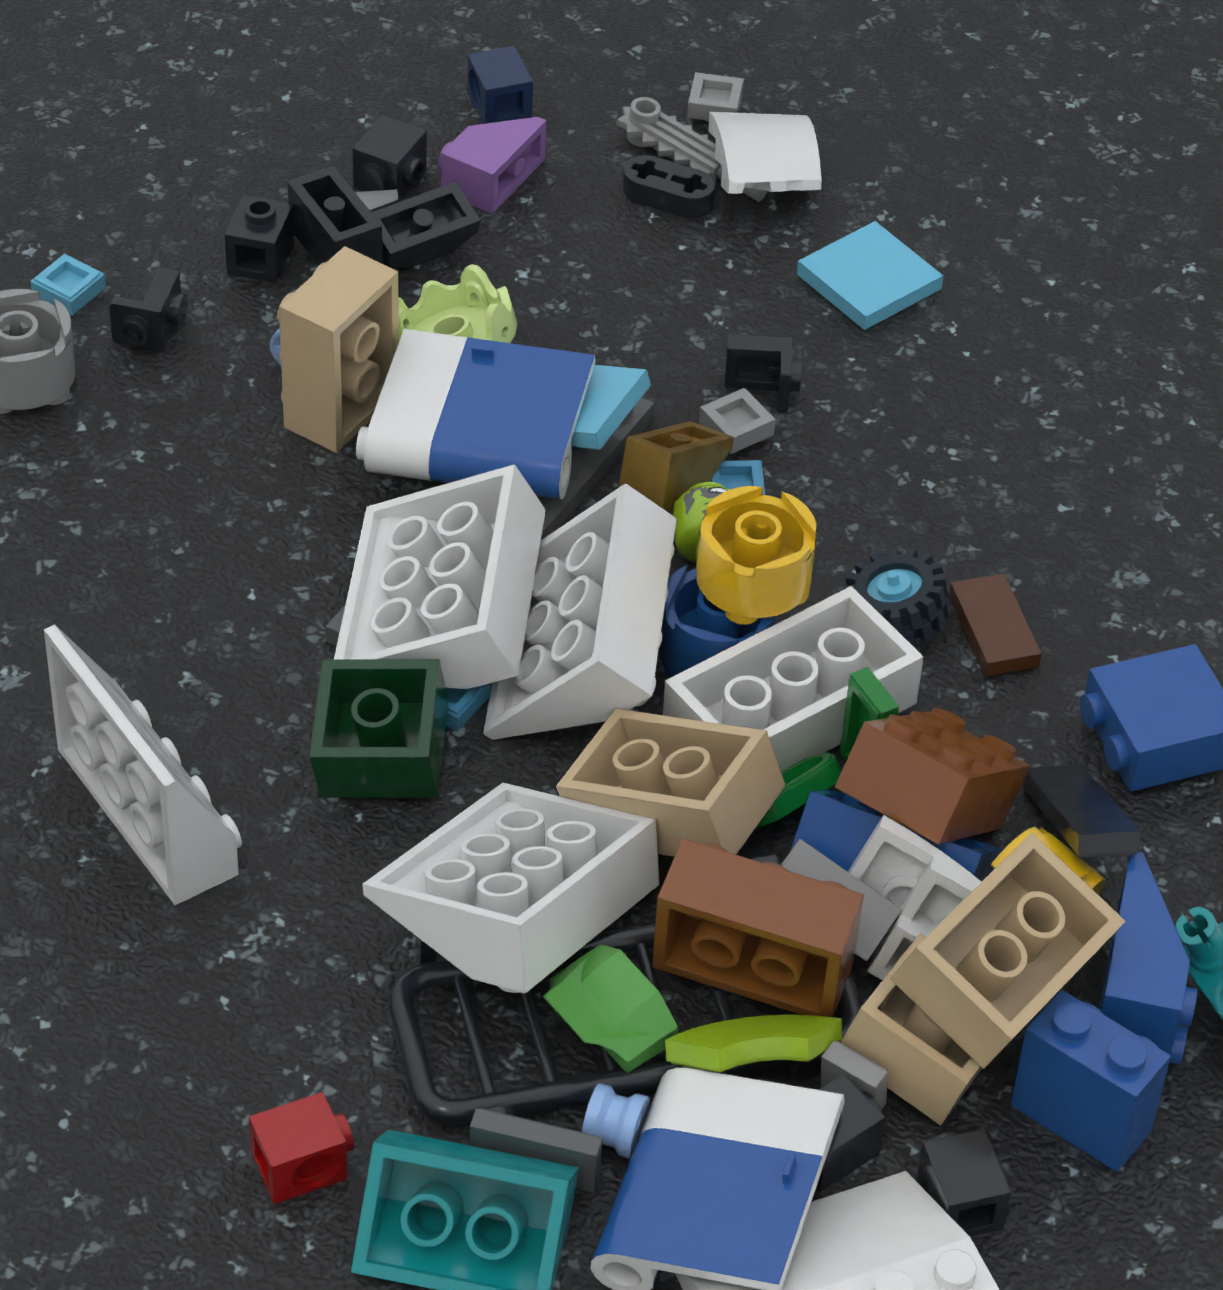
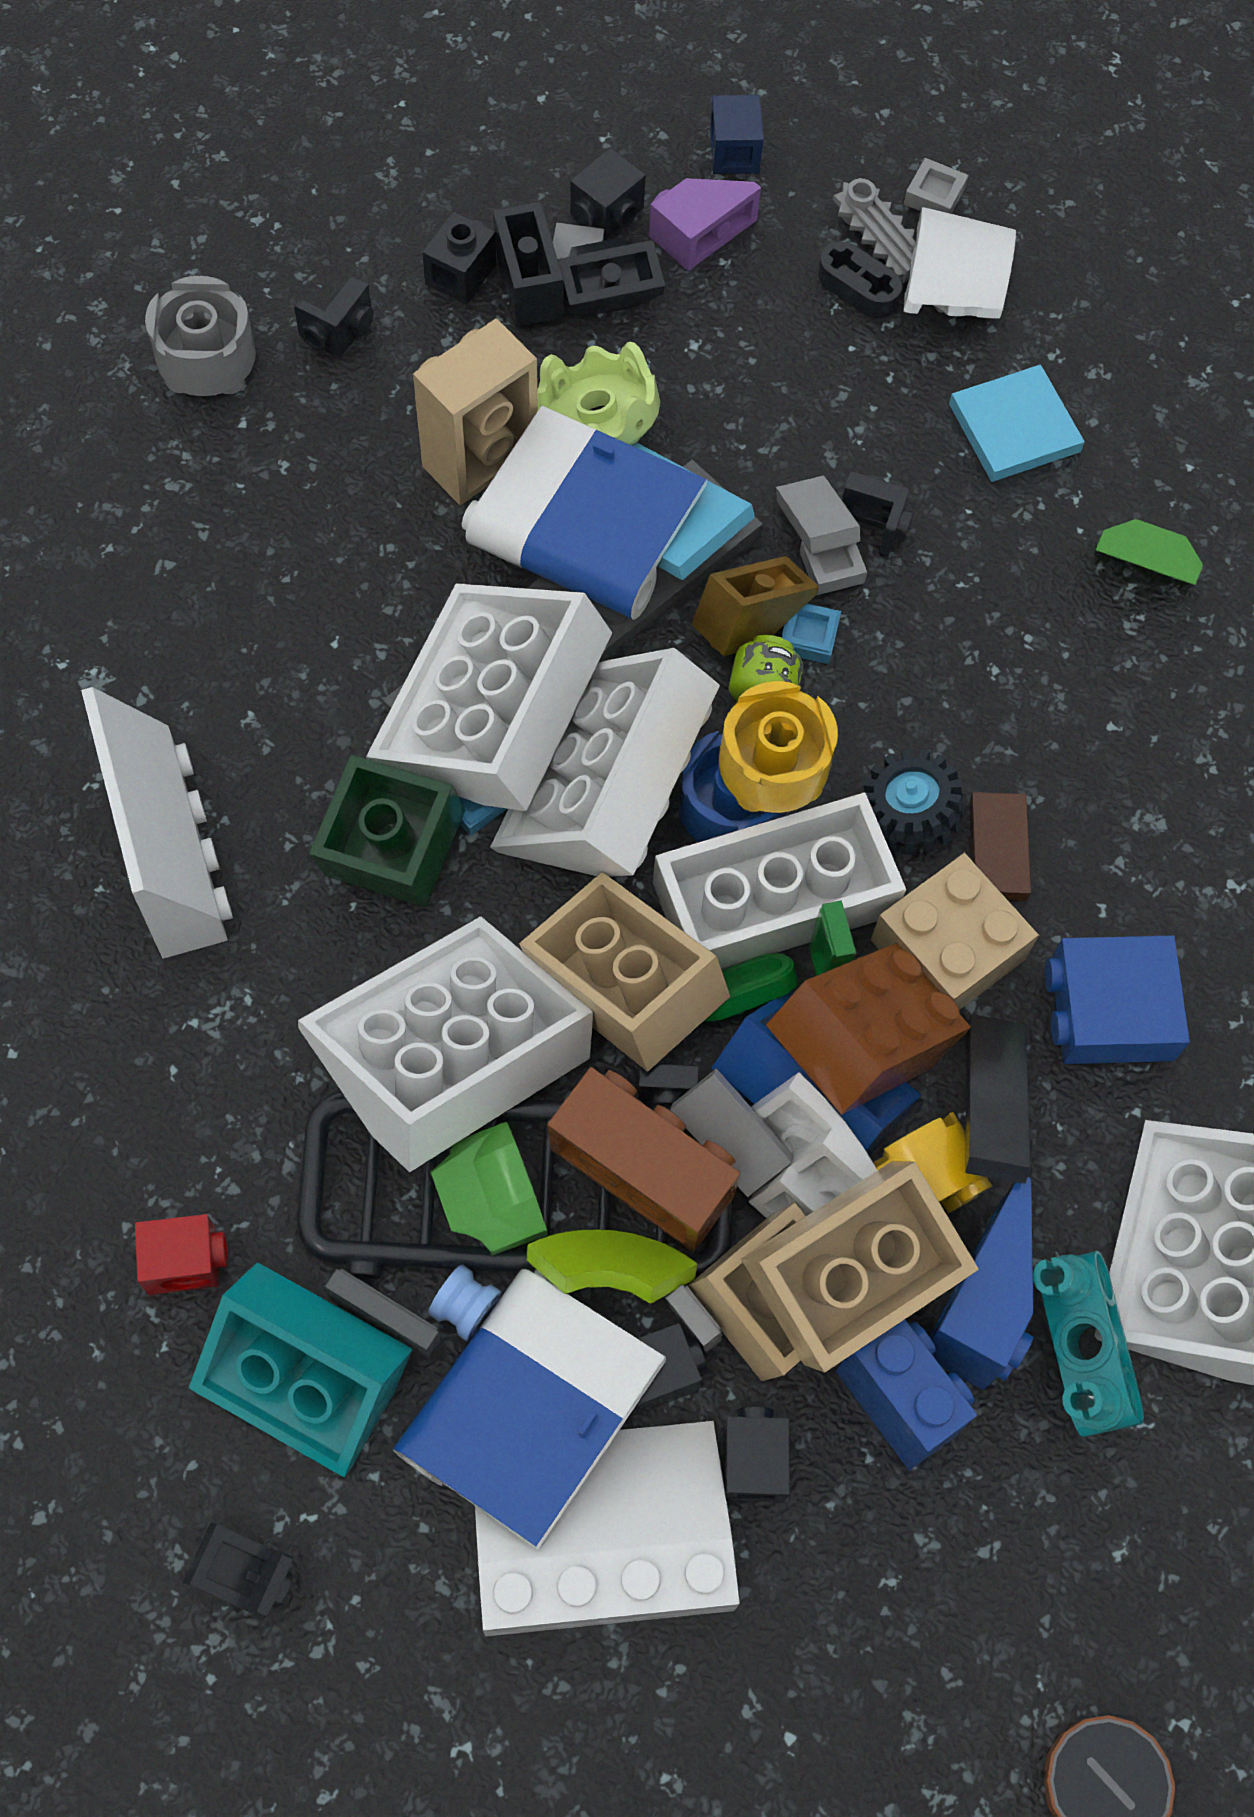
camera: 15 degrees right, 20 degrees up
(69, 283) = (277, 266): medium azure tile -> none
(707, 381) = (818, 514): none -> light grey tile
(990, 686) = (958, 931): none -> tan brick
(1045, 347) = (1152, 549): none -> bright green slope

